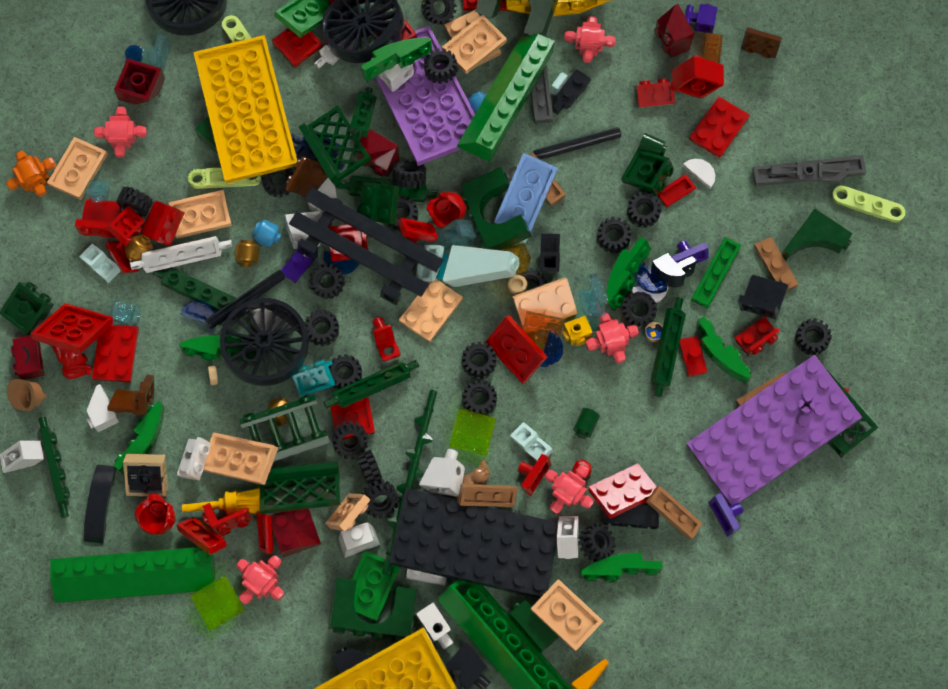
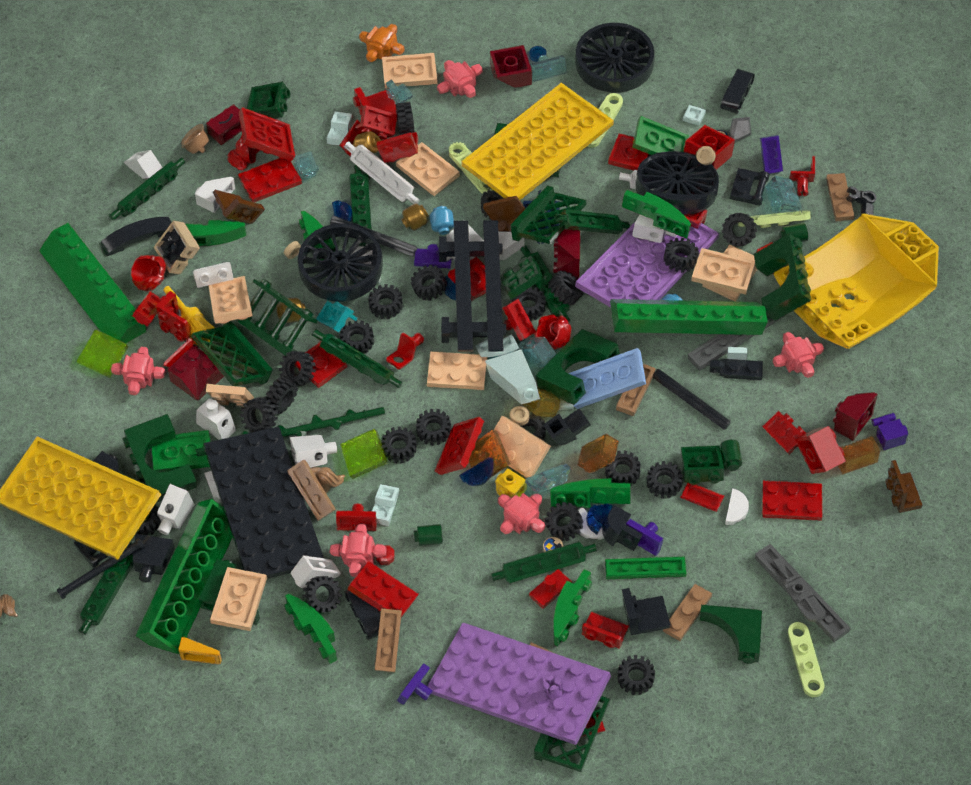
camera: 60 degrees right, 15 degrees down
(594, 244) = (598, 453): none -> clear orange brick

